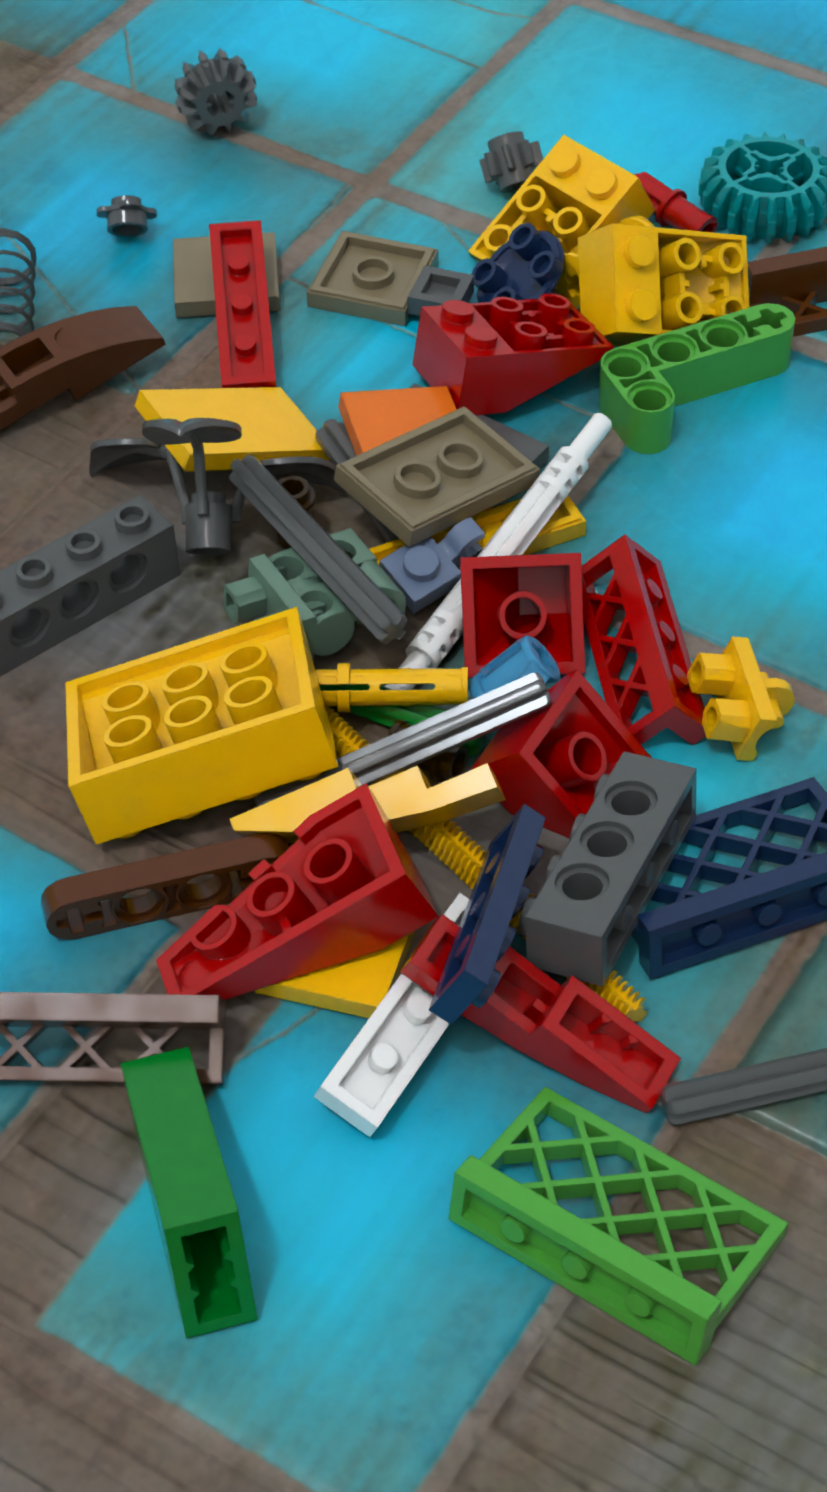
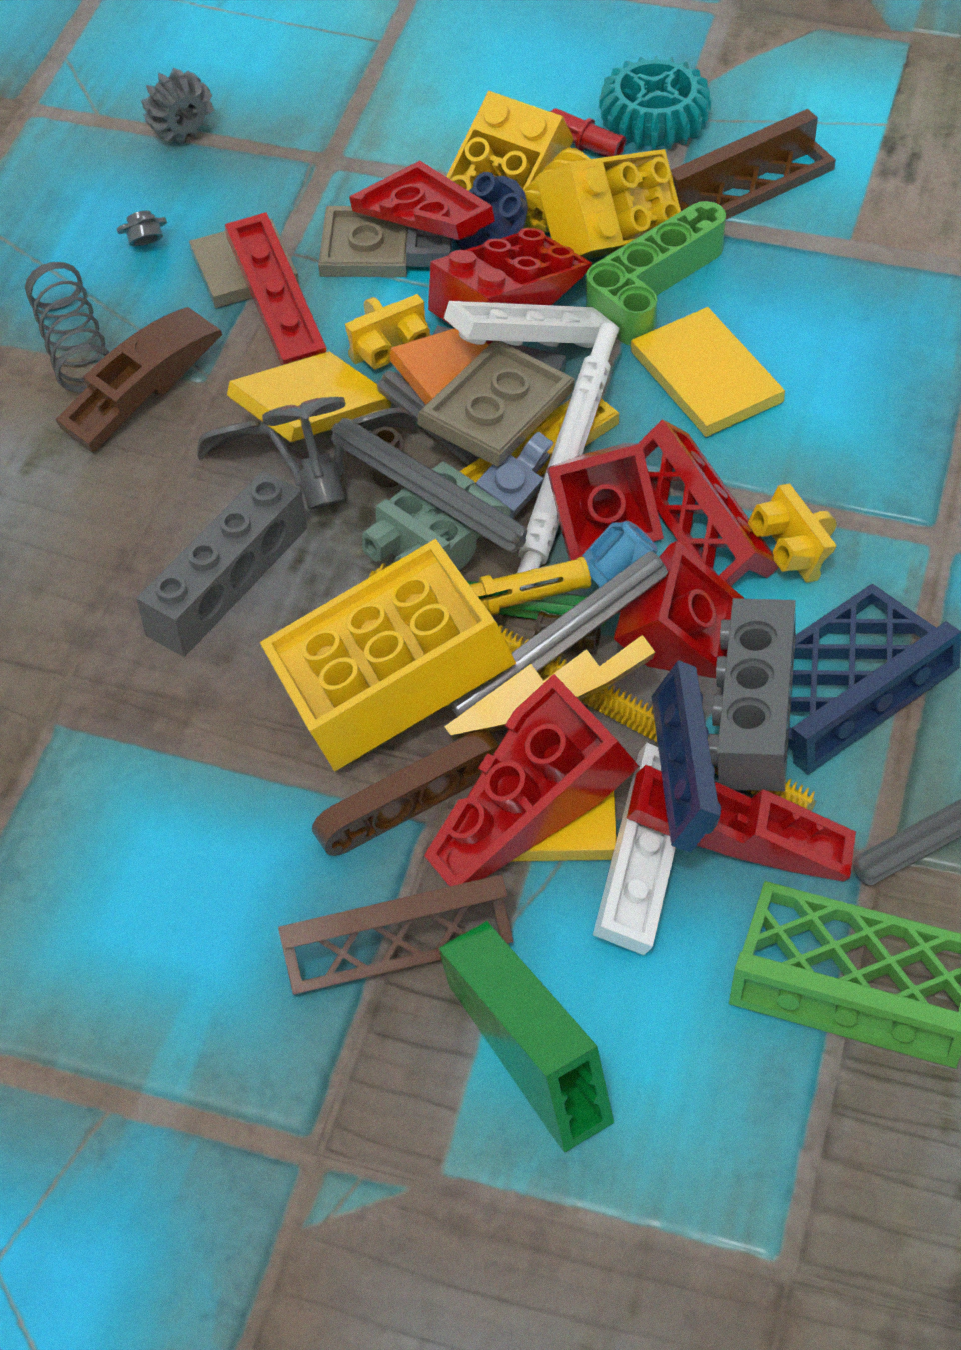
camera: 15 degrees left, 5 degrees up
(349, 371) = (384, 328): none -> yellow hips
(448, 244) = (424, 201): none -> red wing
(501, 394) = (525, 323): none -> white plate
(510, 160) = (444, 119): dark grey gear -> none
(712, 497) = (707, 371): none -> yellow tile

